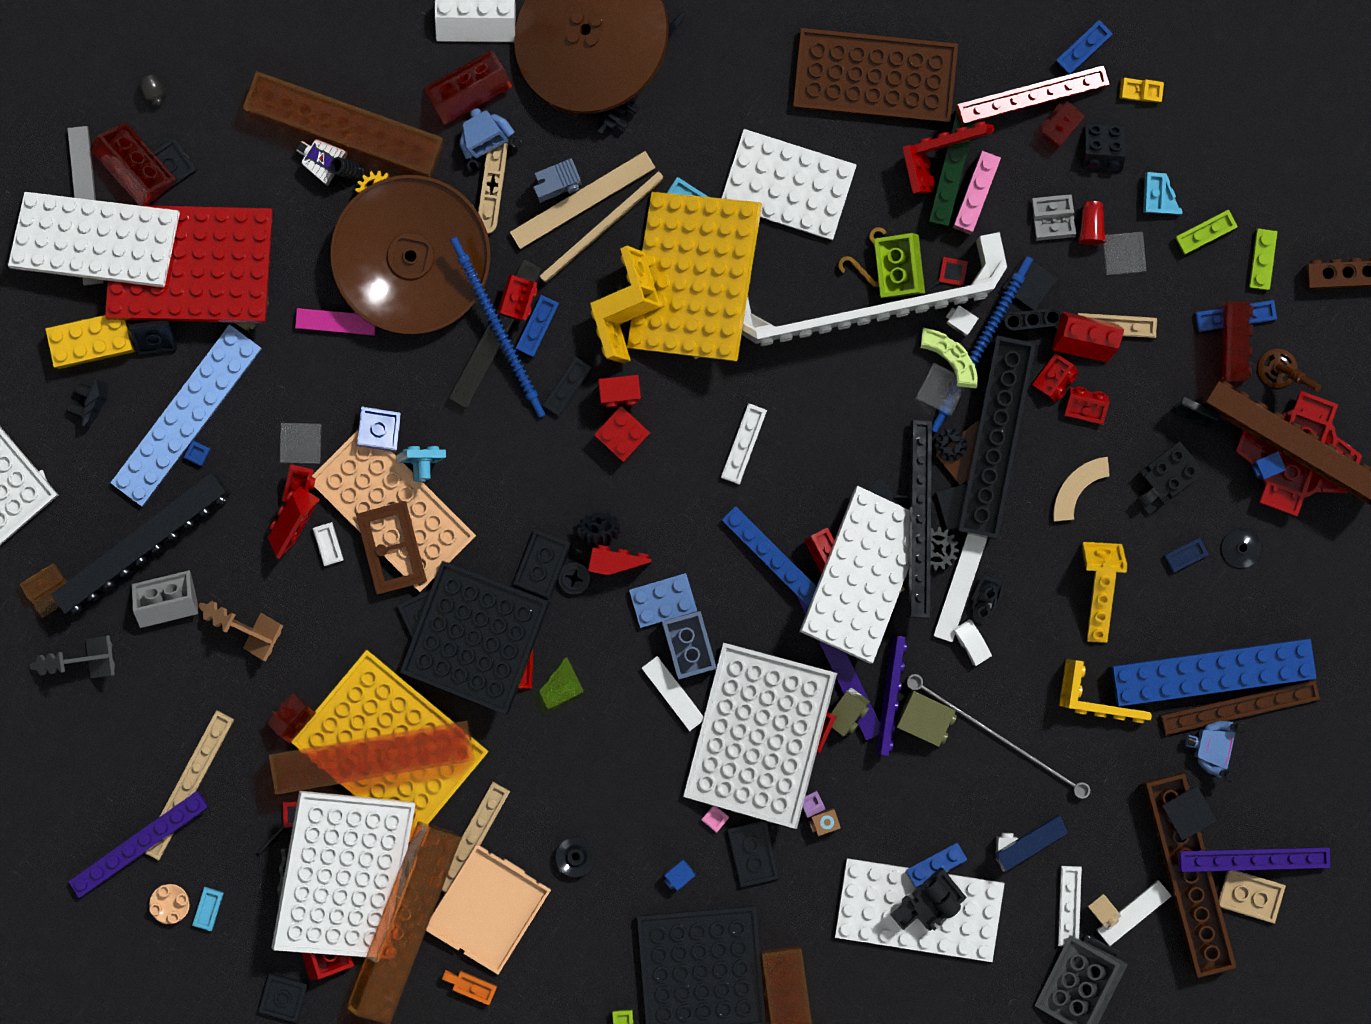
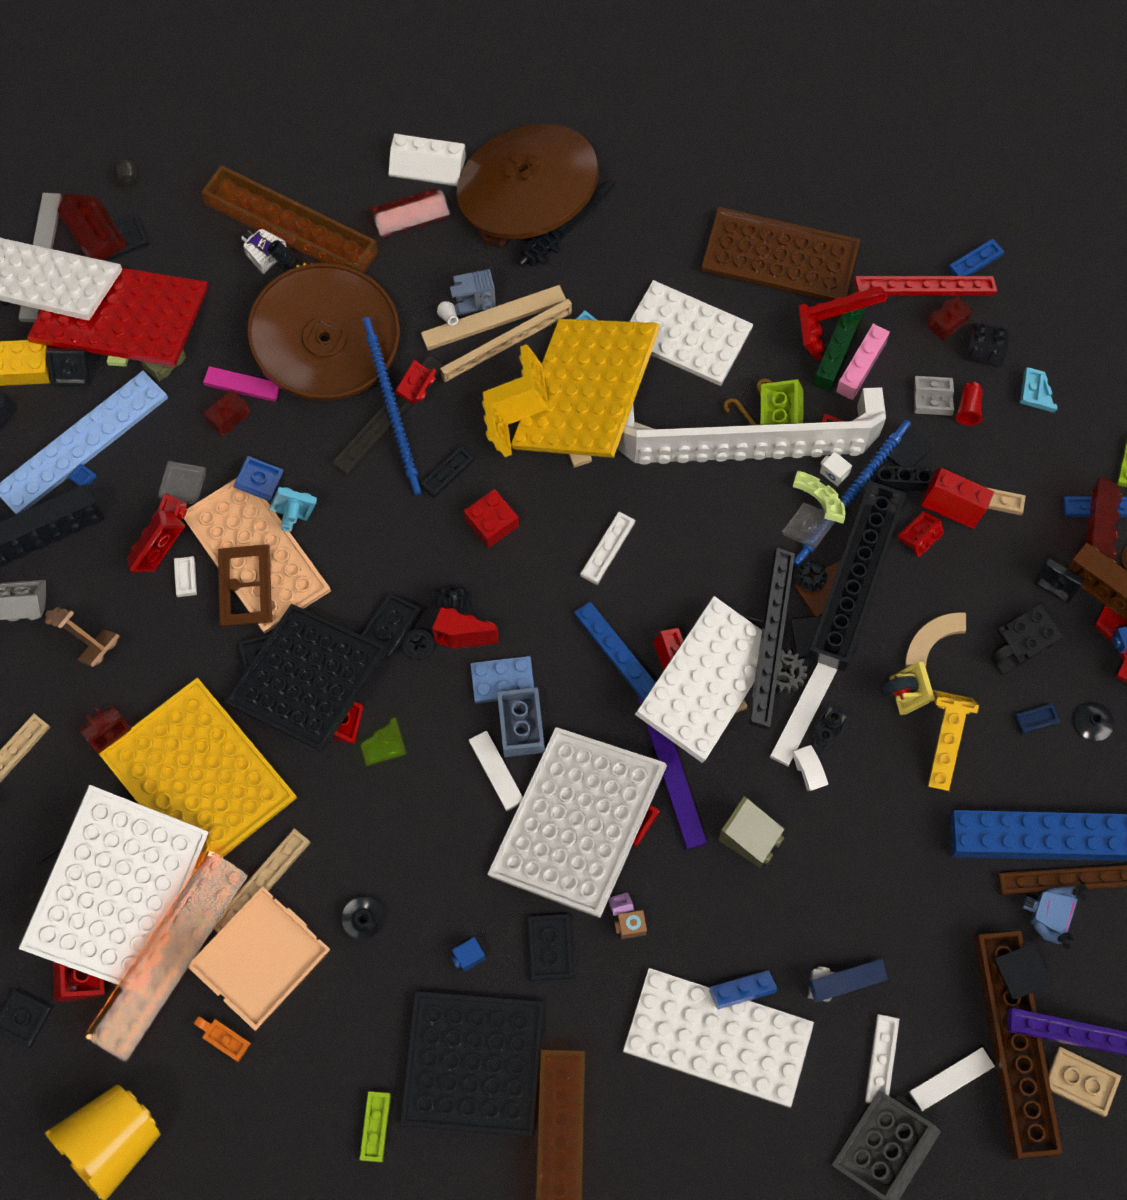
camera: 10 degrees right, 20 degrees down
(329, 359) = (227, 413): none -> clear red brick
(371, 757) = (178, 776): clear orange brick -> none
(483, 134) = (415, 246): medium blue torso -> none
(490, 204) = (418, 277): tan piece -> none
(534, 206) = (447, 312): none -> white cone
(537, 326) = (429, 414): blue plate -> none
(620, 390) = (496, 473): red slope -> none
(715, 818) = (516, 903): bright pink tile -> none
(849, 710) = (673, 813): olive brick -> none
(890, 702) = (717, 811): dark purple plate -> none
(932, 902) = (731, 1024): black plate -> none
(1059, 549) = (909, 688): none -> light yellow plate
(1072, 690) = (905, 839): yellow bracket -> none
(1080, 789) = (906, 936): light grey piece -> none
(1087, 405) = (949, 563): red bracket -> none
(1105, 912) = (920, 1069): tan brick -> none
(1124, 253) = (998, 436): clear tile -> none
(1141, 90) = (1024, 303): yellow slope -> none
(1206, 232) = (1079, 428): lime plate -> none

